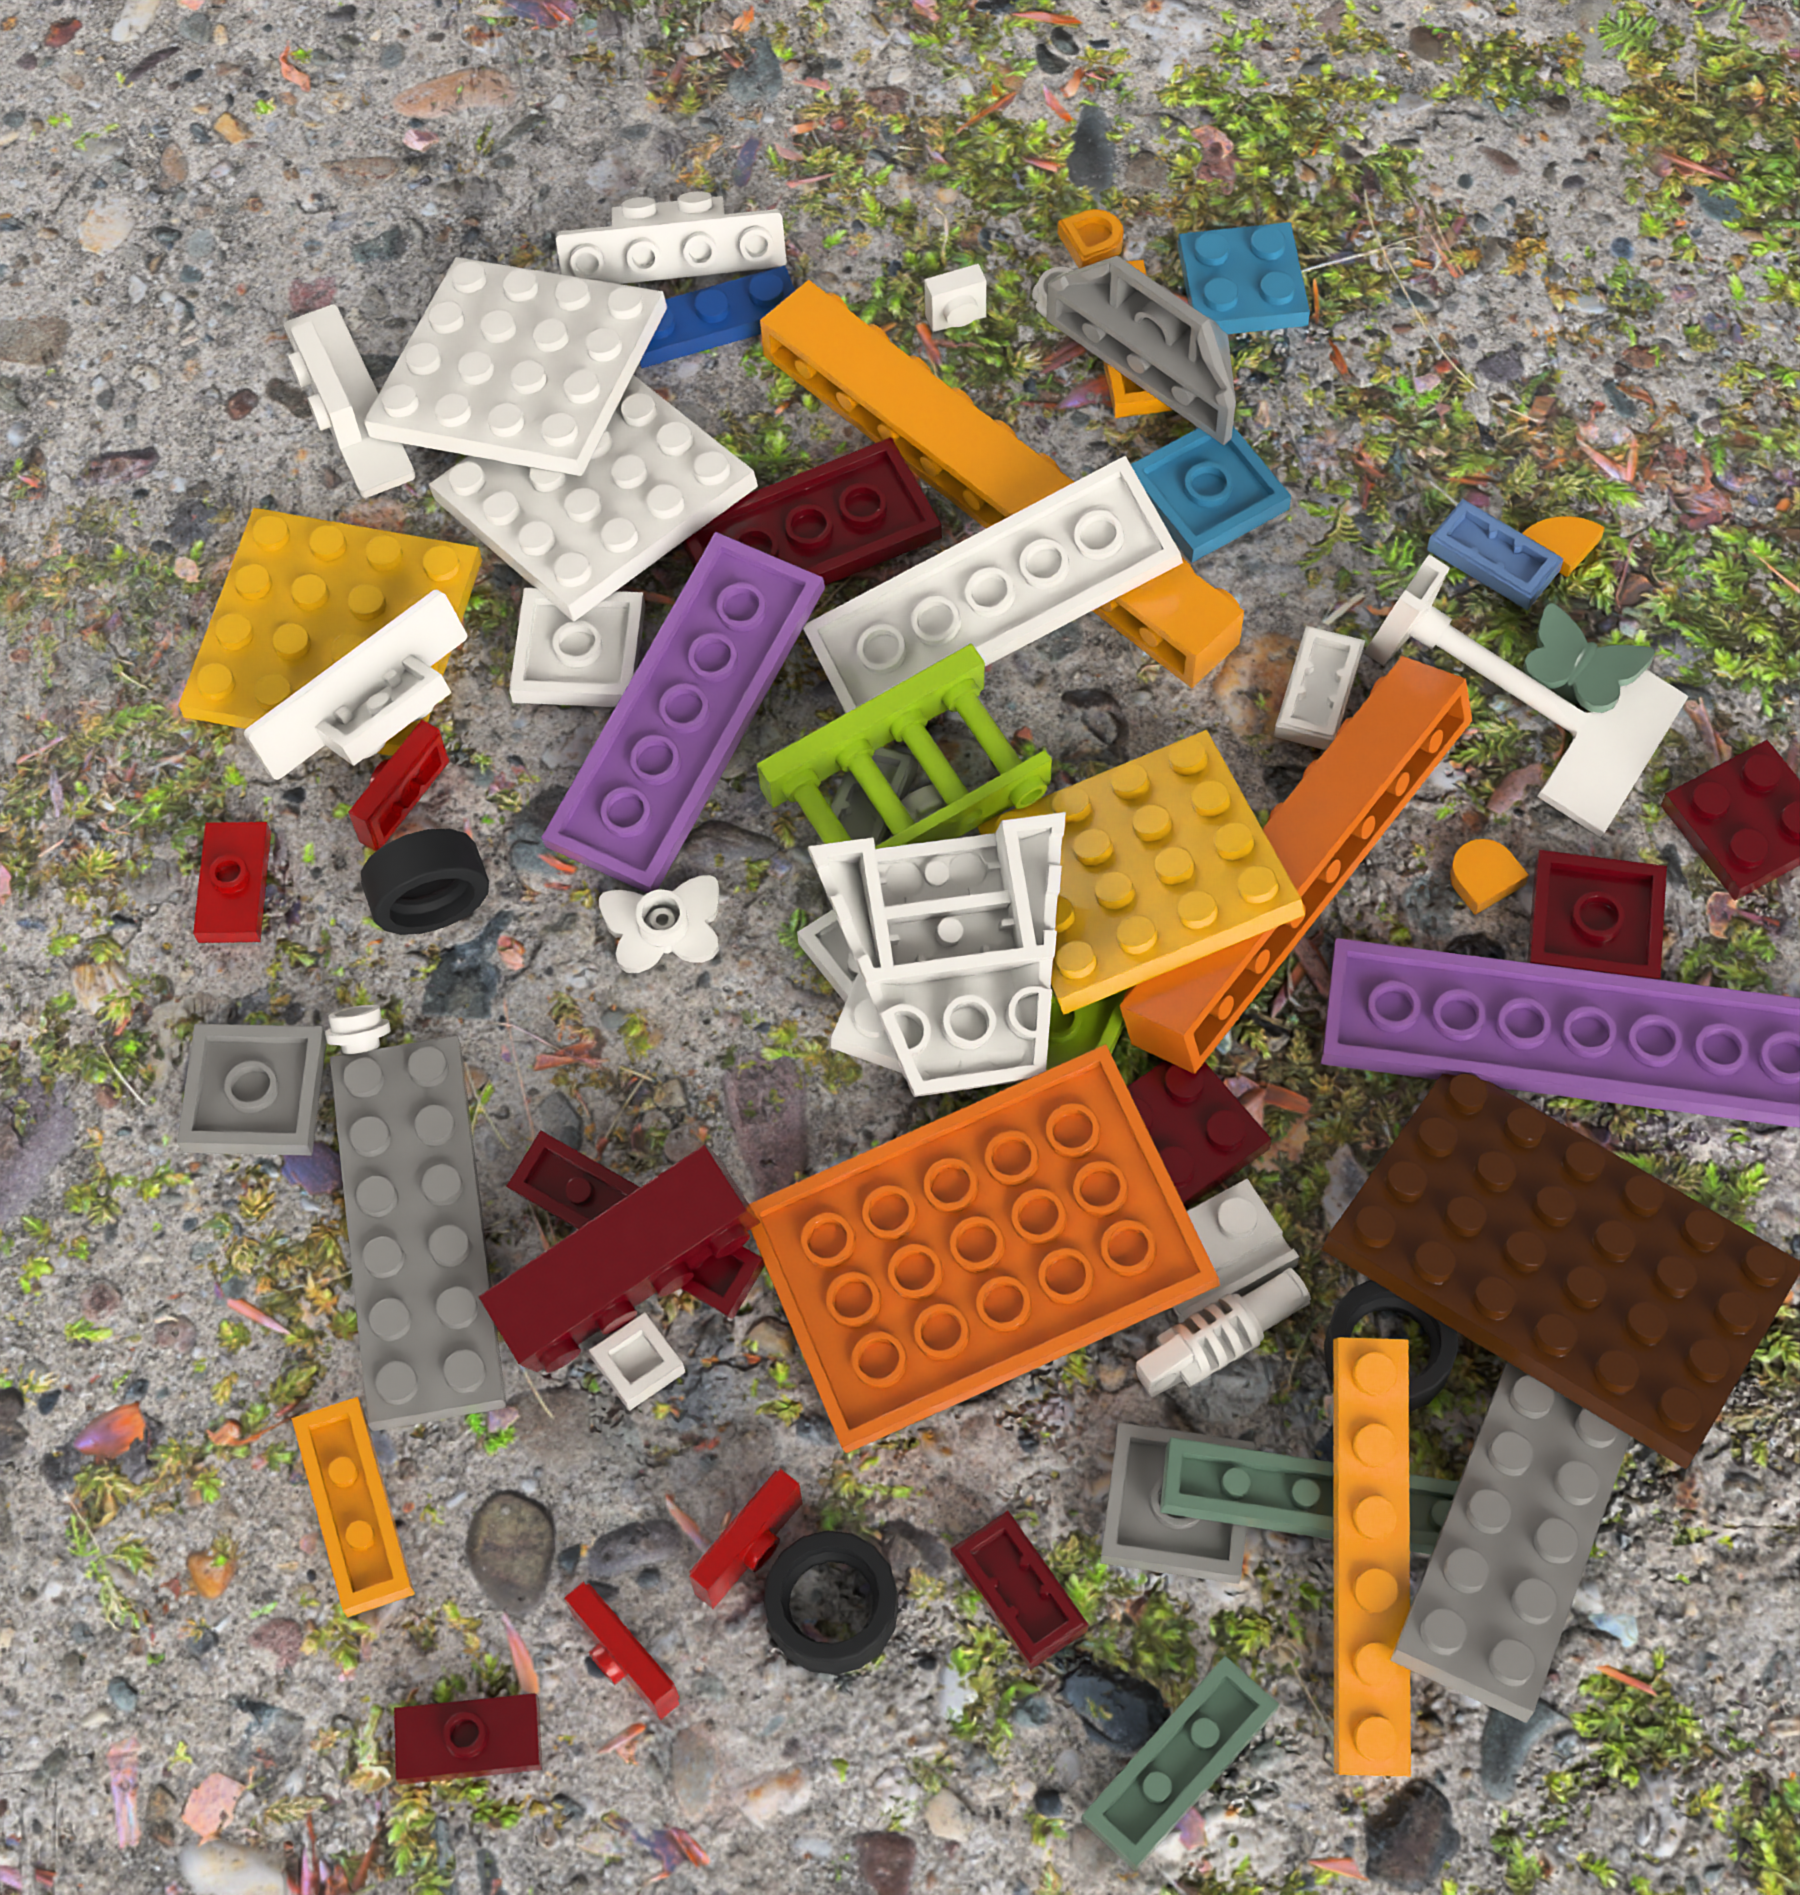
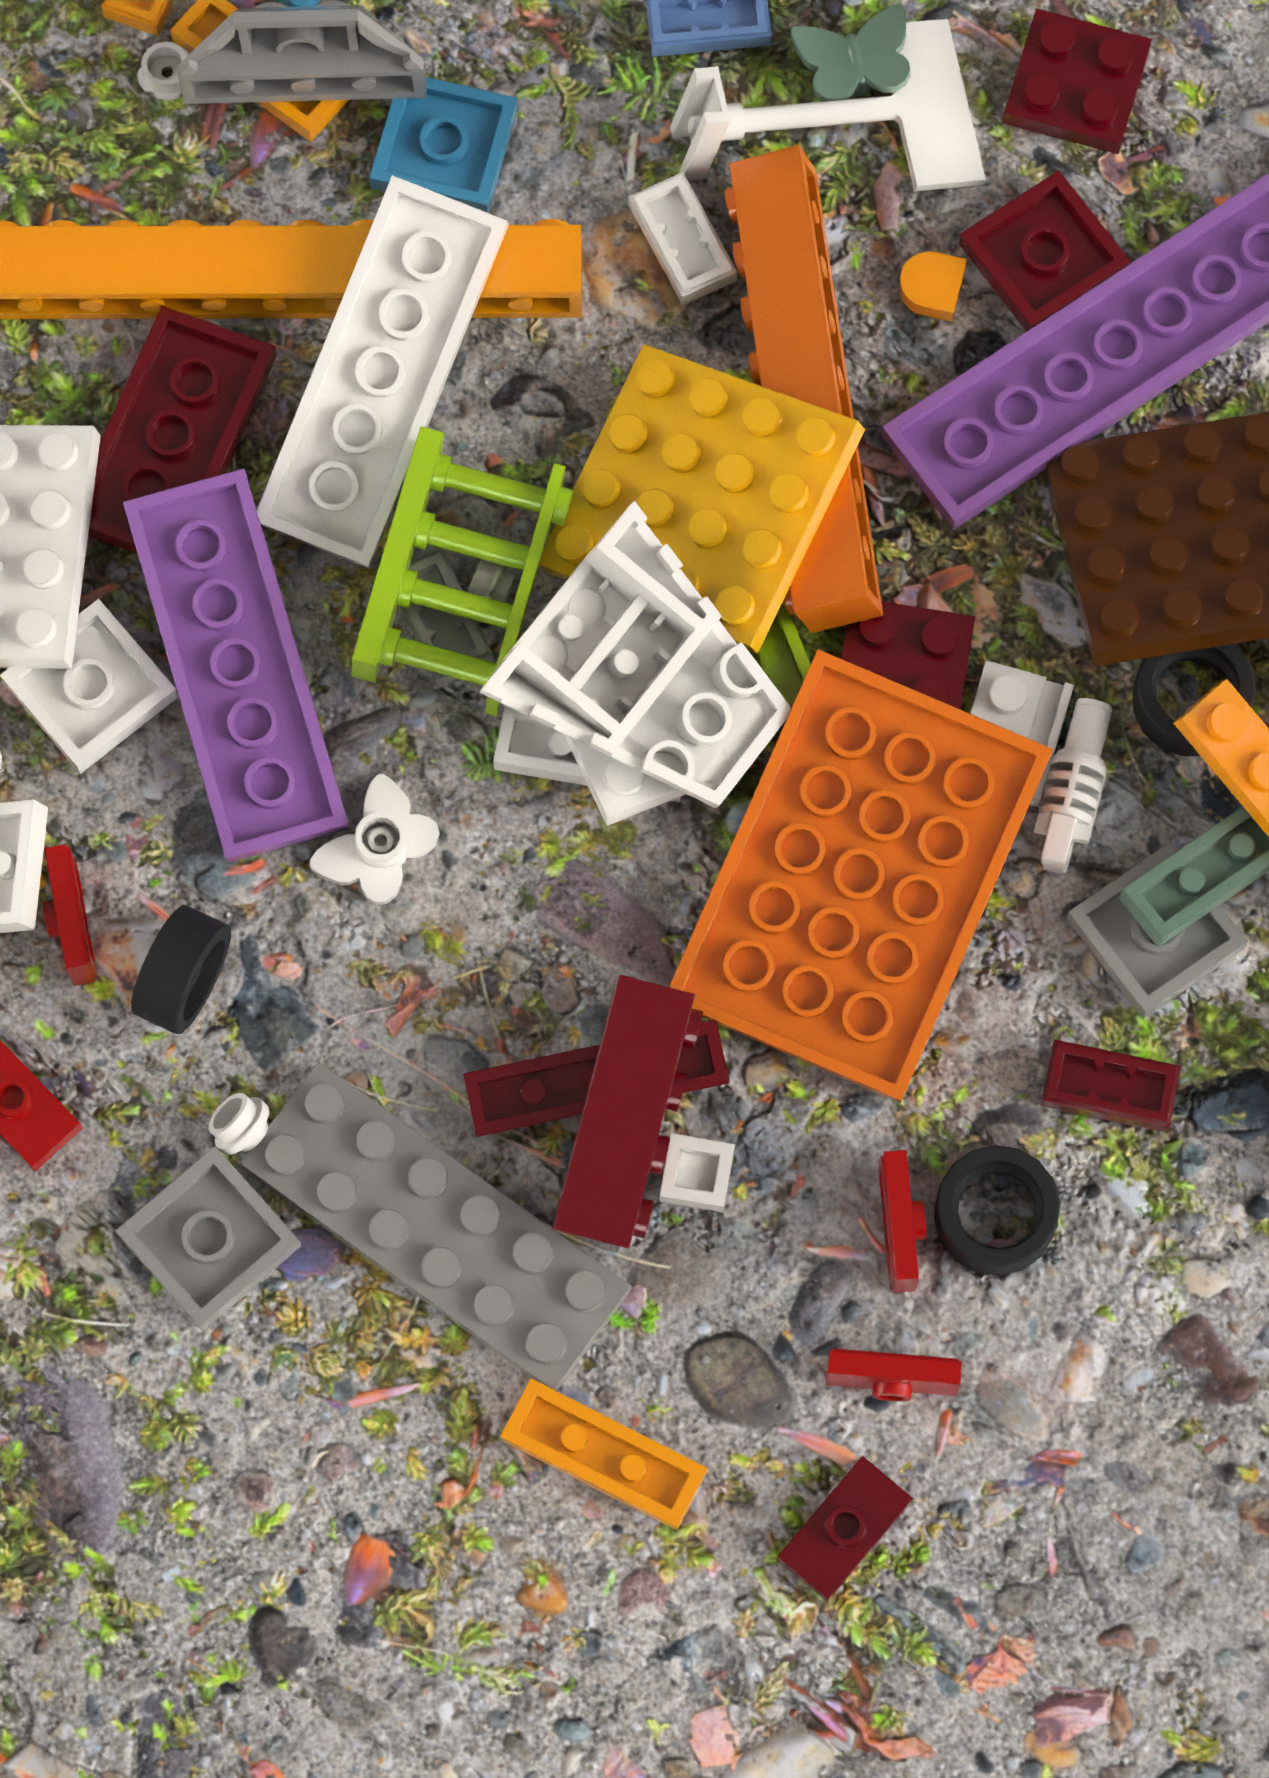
camera: 45 degrees left, 10 degrees up
(955, 298) = (91, 144): white plate -> none

